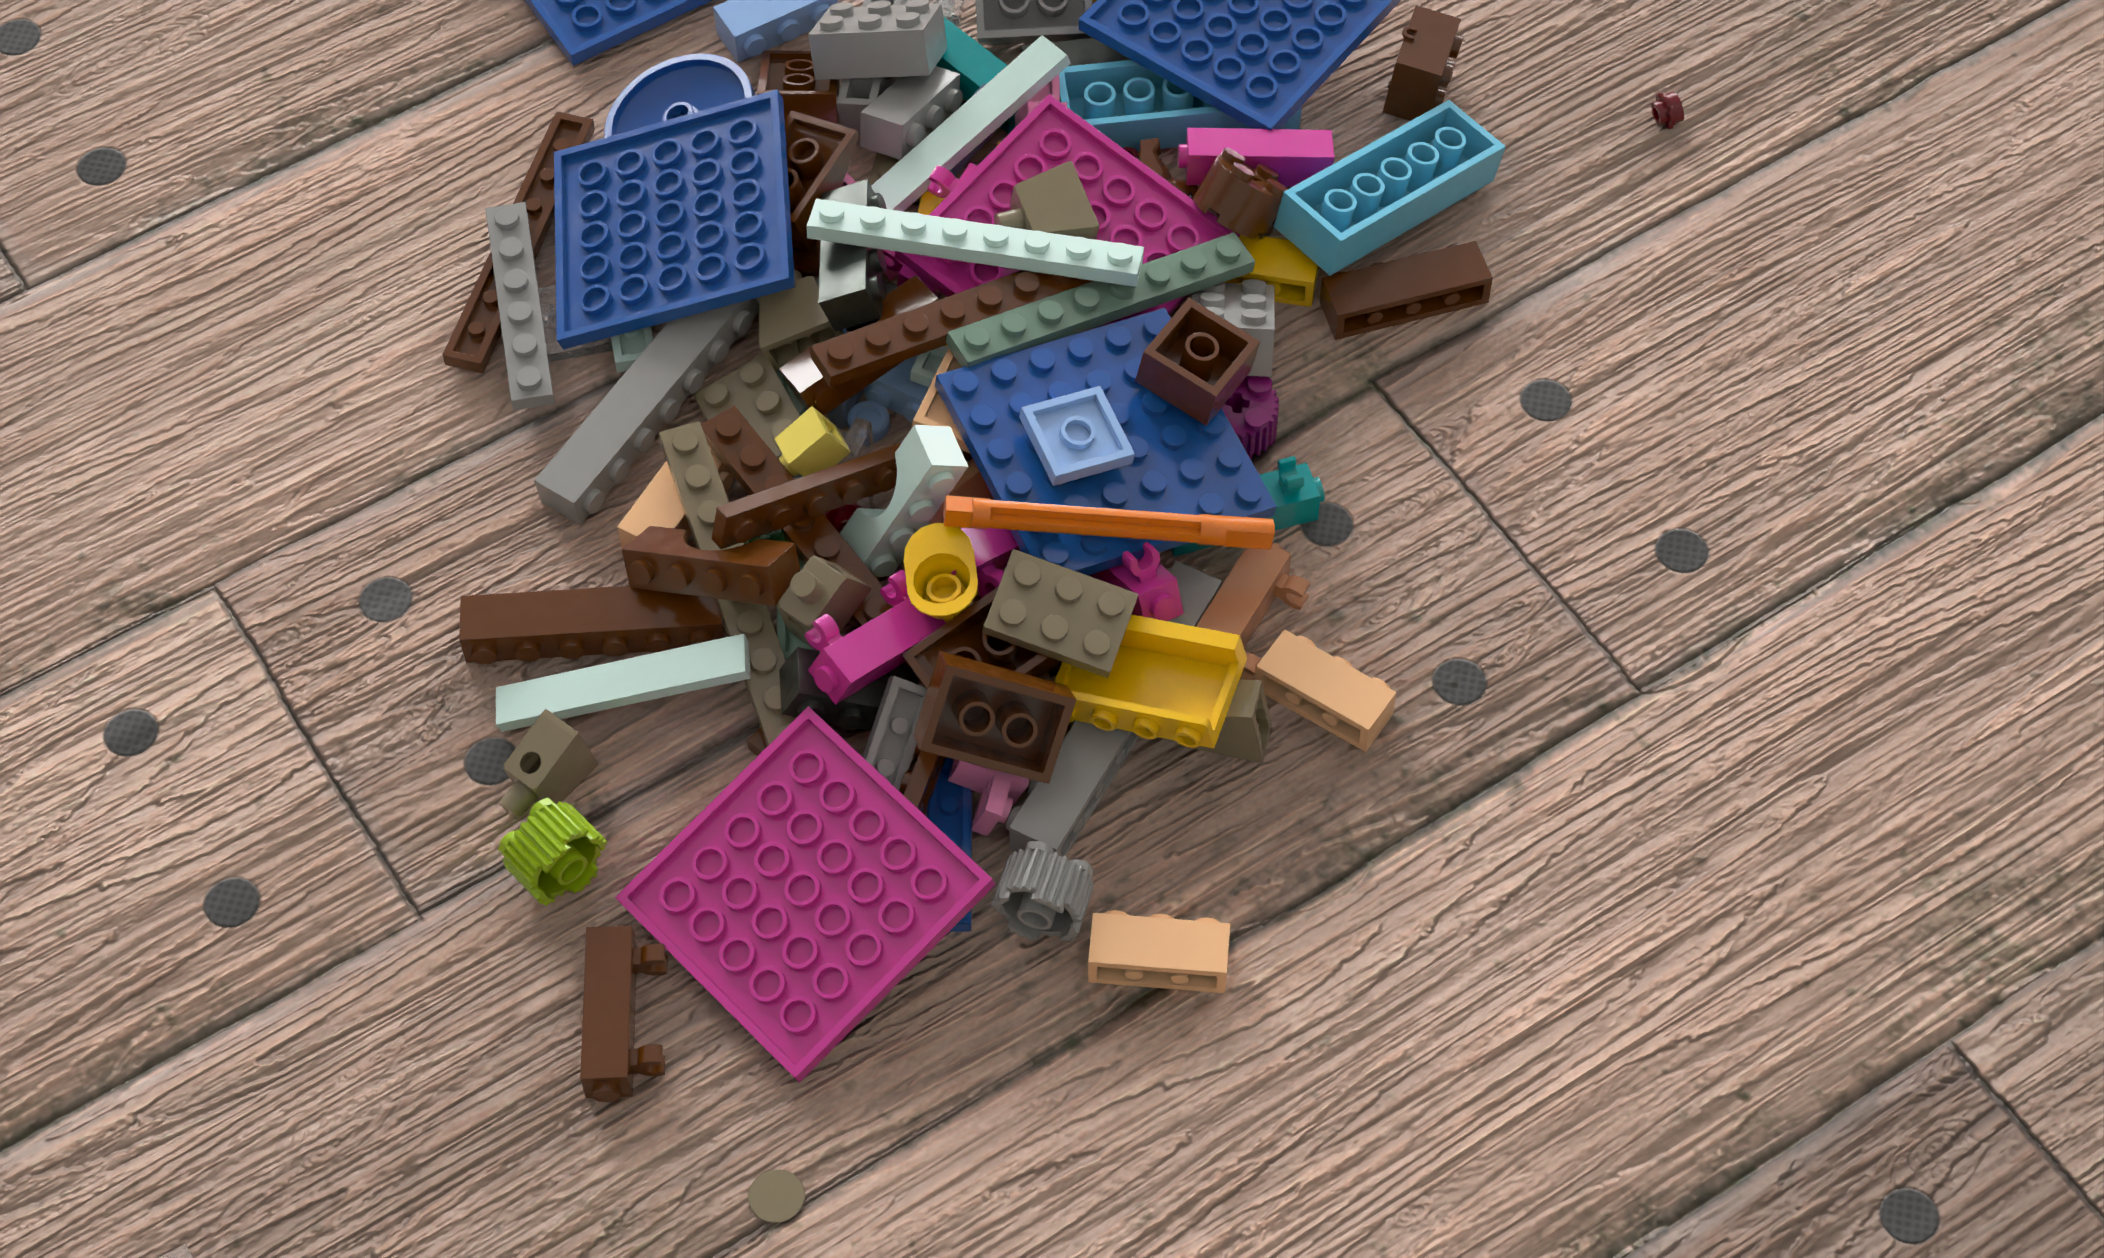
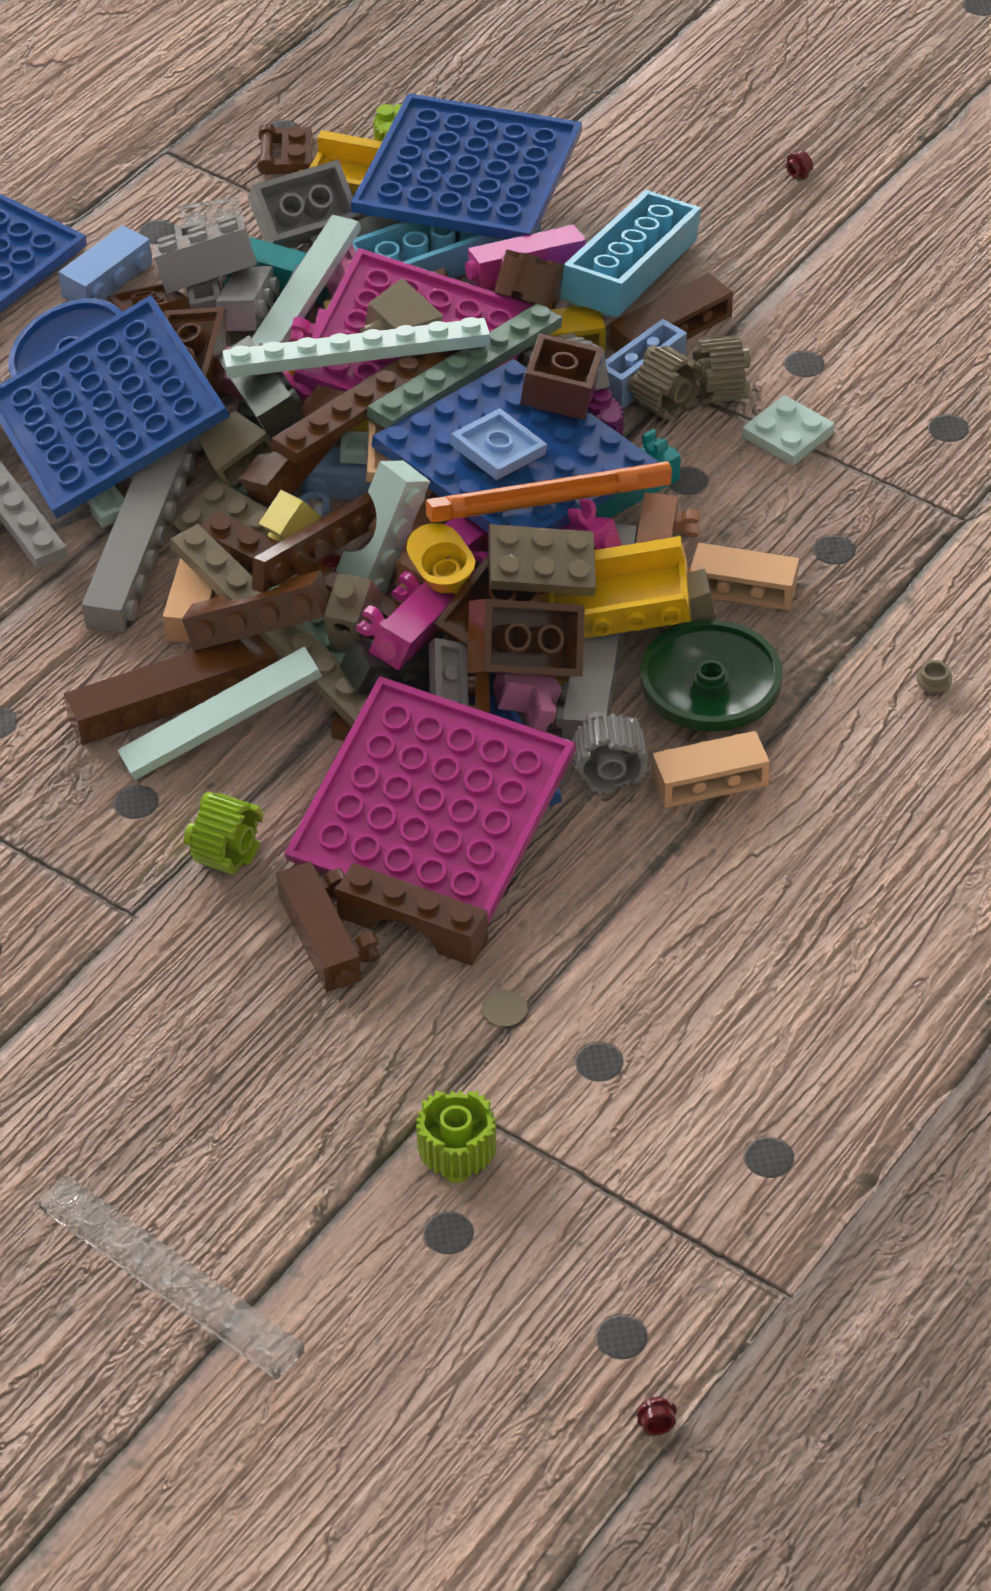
camera: 20 degrees left, 10 degrees down
(546, 765) = (187, 777): dark tan torso -> none
(741, 1051) = (450, 925): none -> reddish brown arch
(1216, 823) = (711, 675): none -> dark green dish
(1337, 346) = (629, 358): none -> light blue brick
(1350, 384) = (665, 381): none -> dark tan brick
(1423, 64) = (613, 174): reddish brown brick -> none
(1428, 386) = (722, 369): none -> dark tan brick
(1479, 492) = (788, 430): none -> light aqua plate
(1493, 912) = (934, 676): none -> dark tan plate

